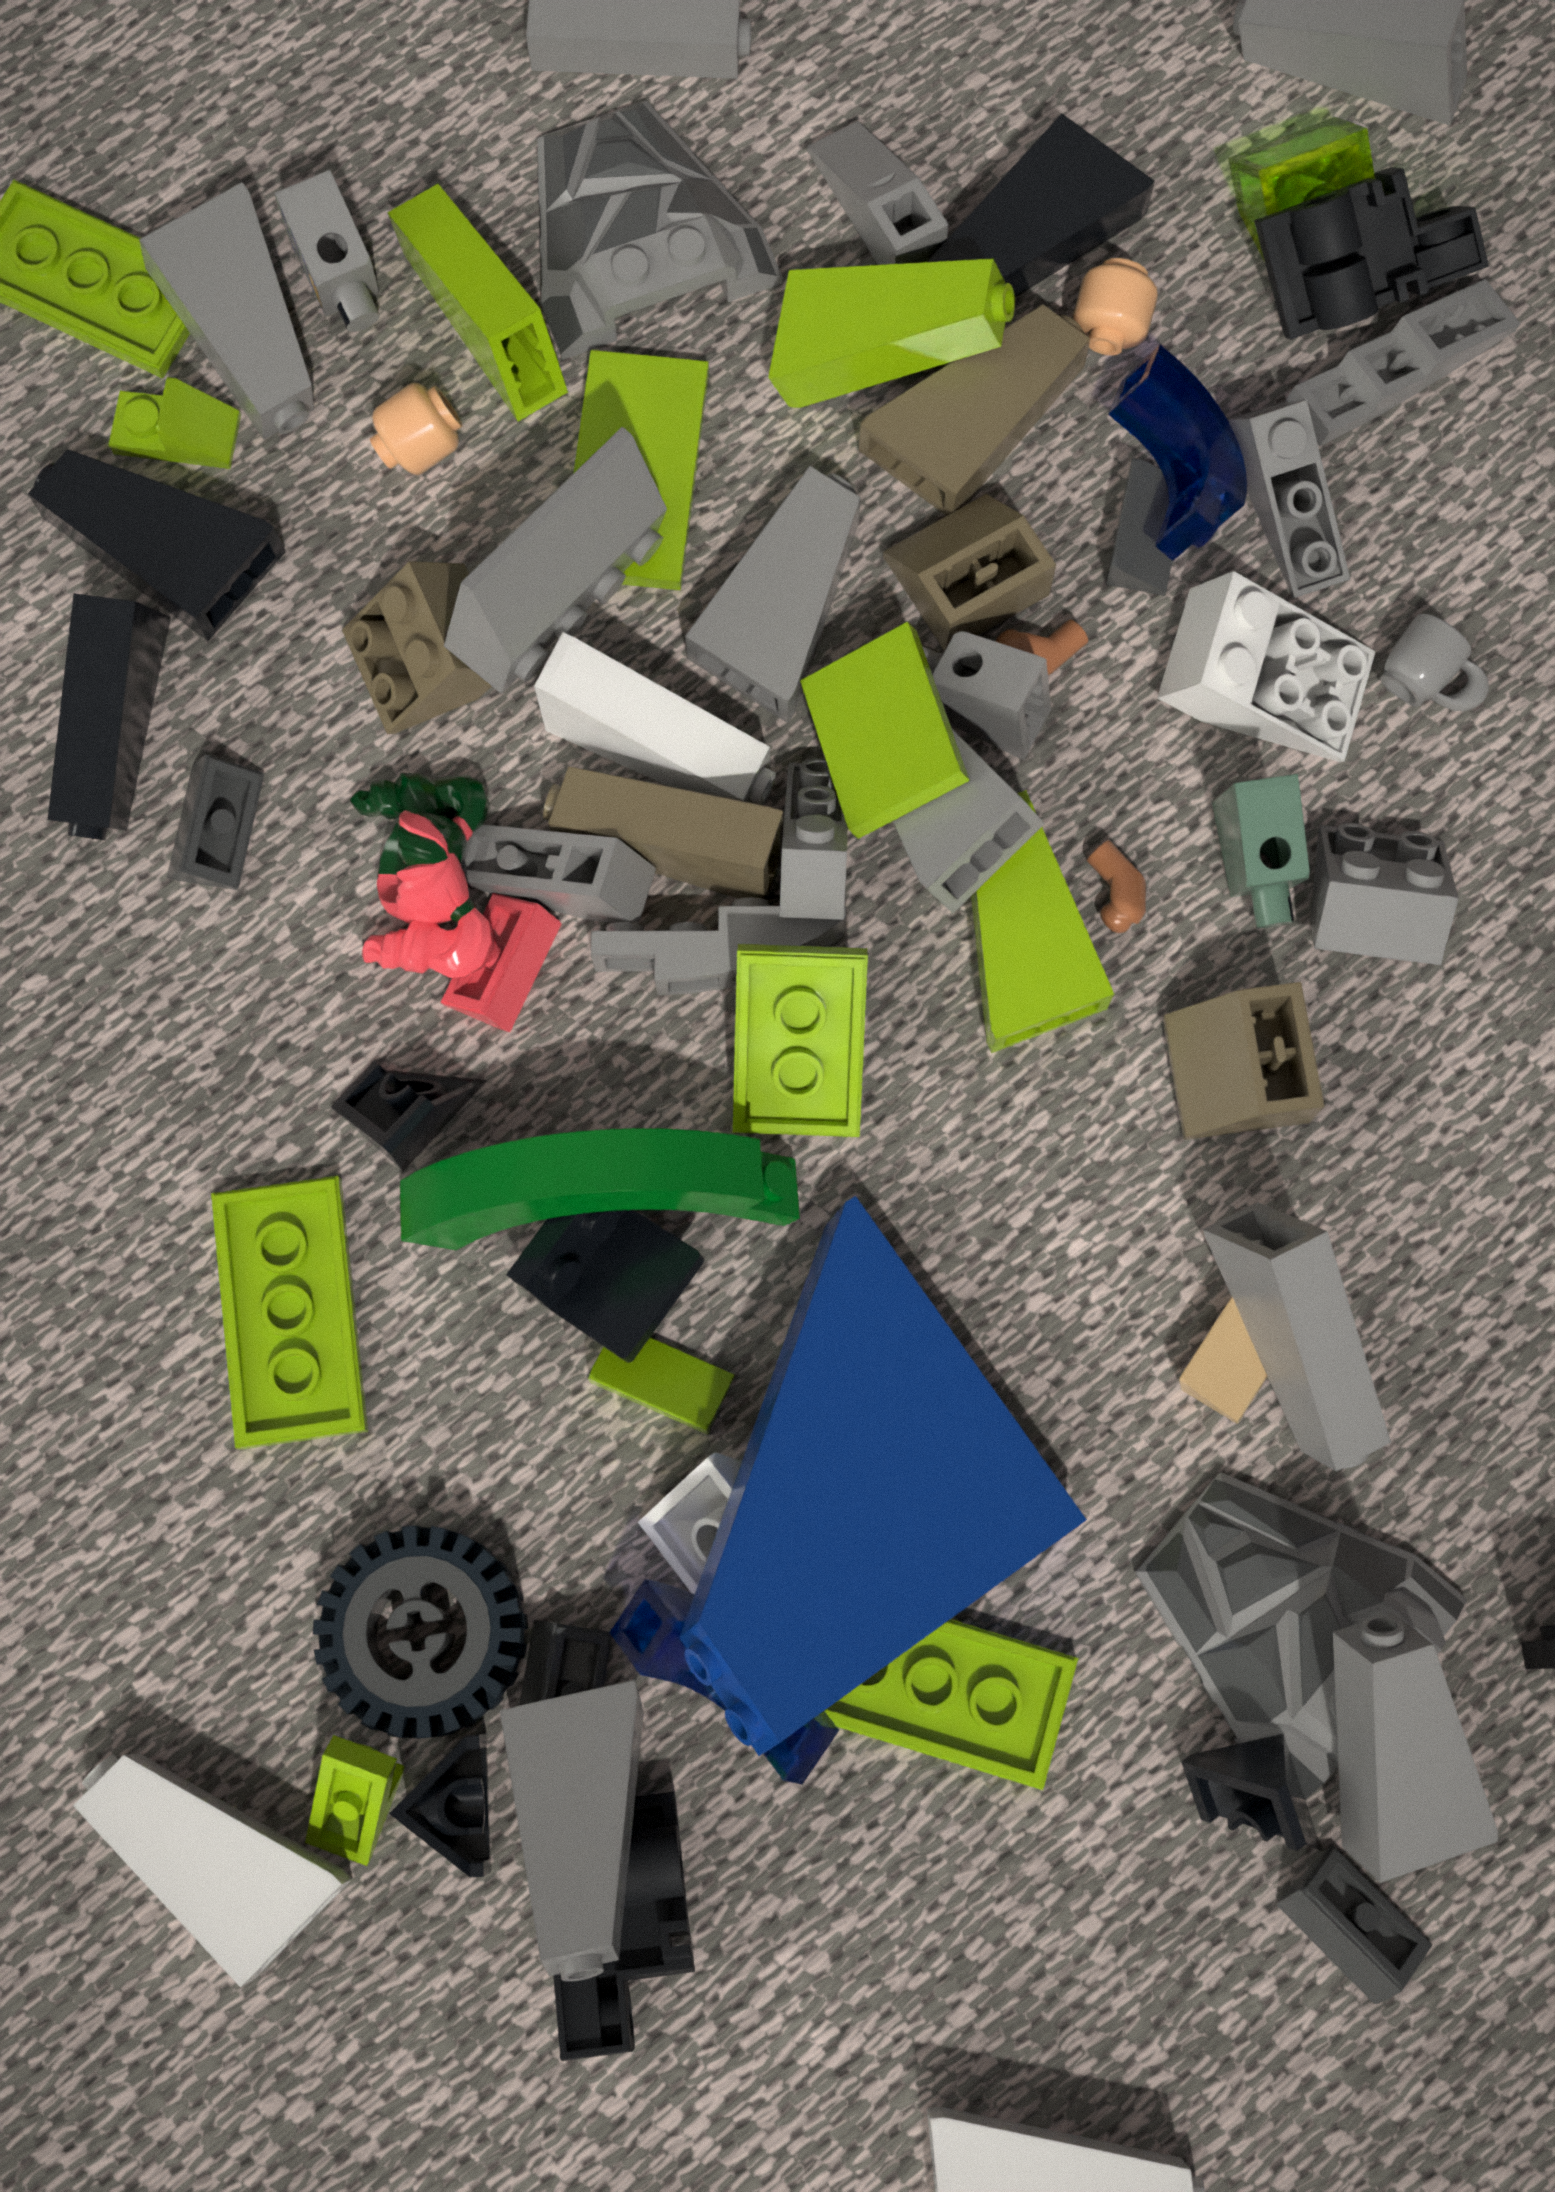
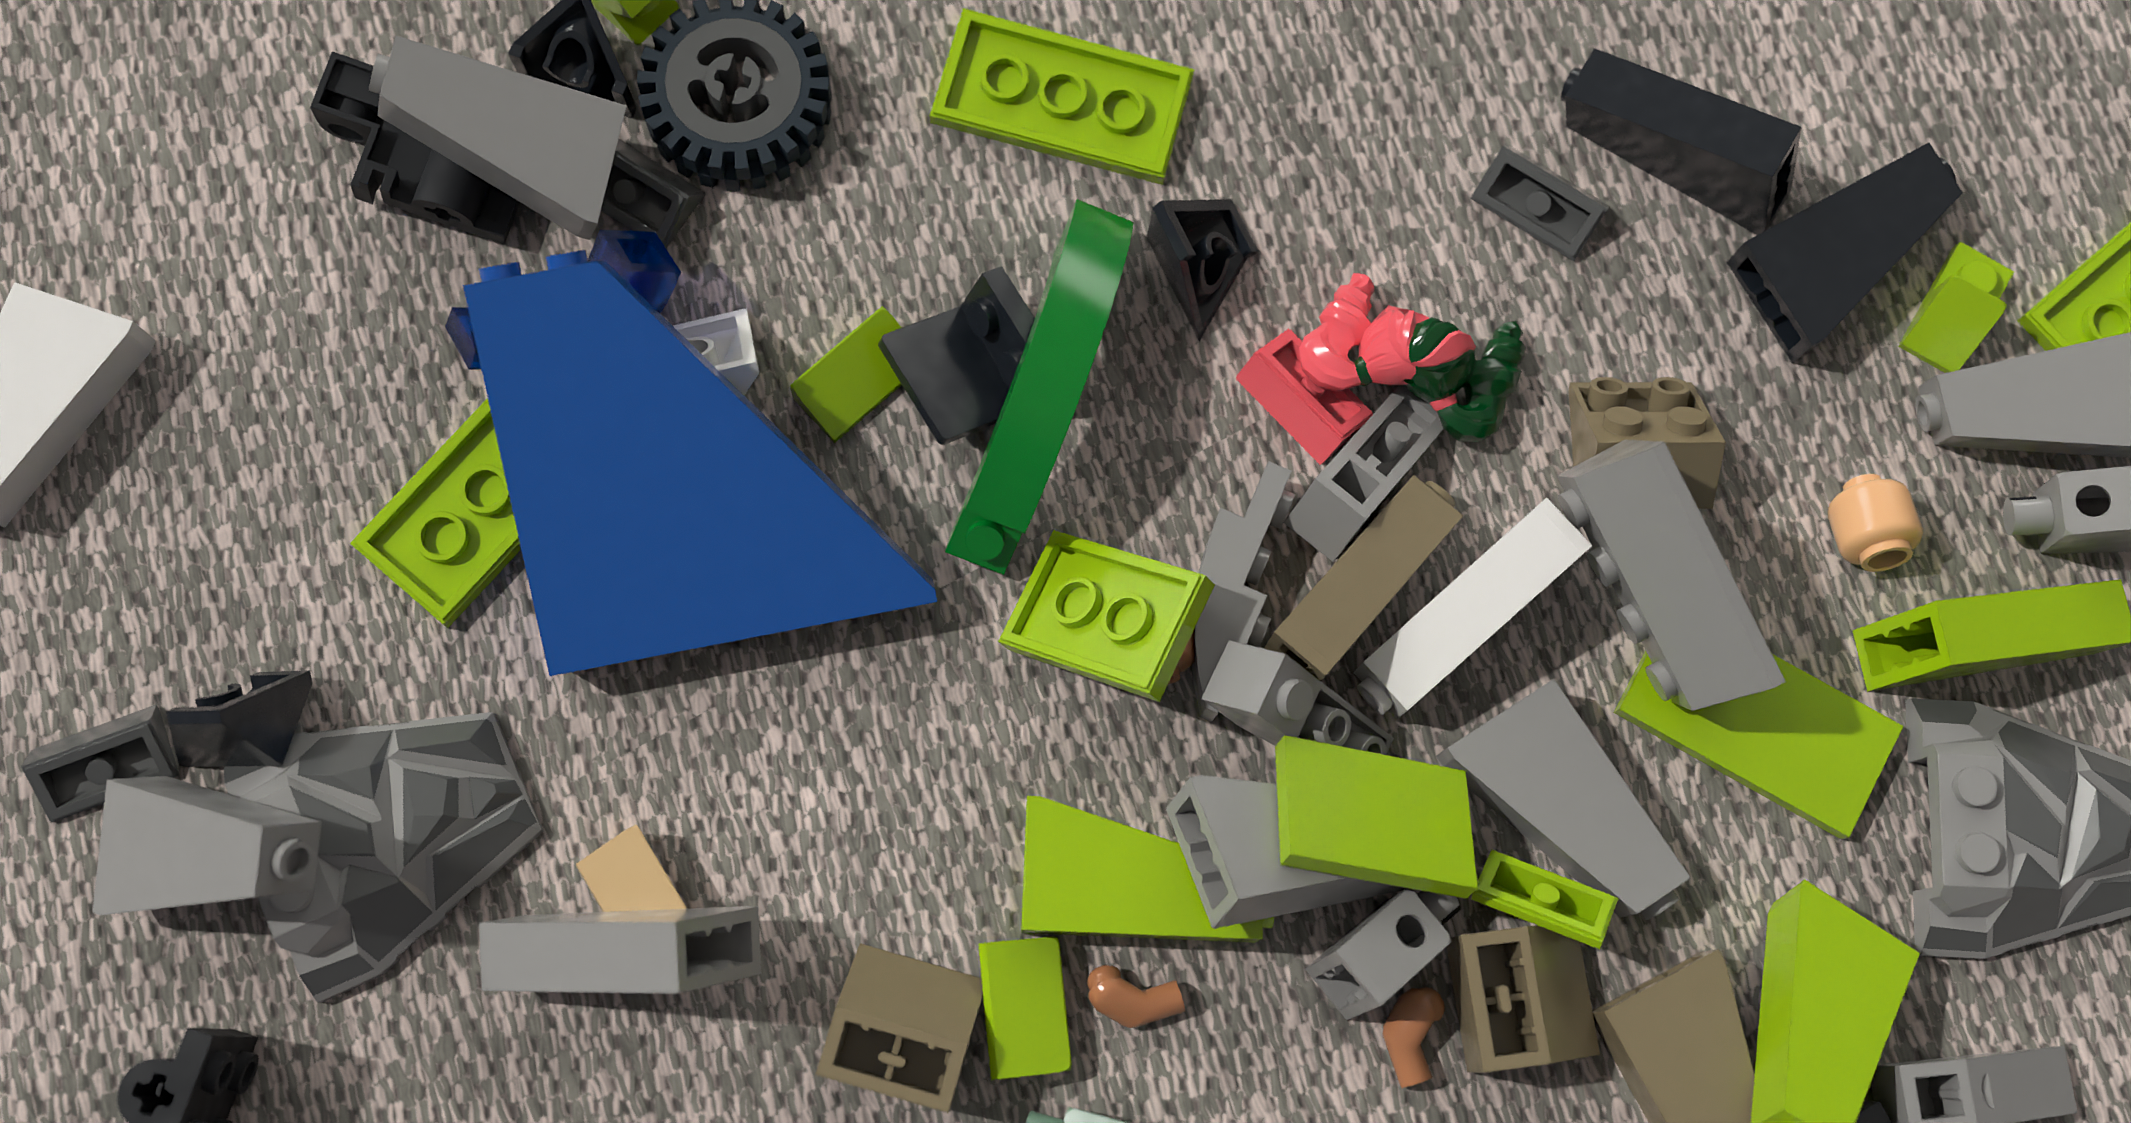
camera: 105 degrees right, 0 degrees up
(882, 572) = (1545, 899): none -> lime slope
(1173, 970) = (1025, 1007): none -> lime slope

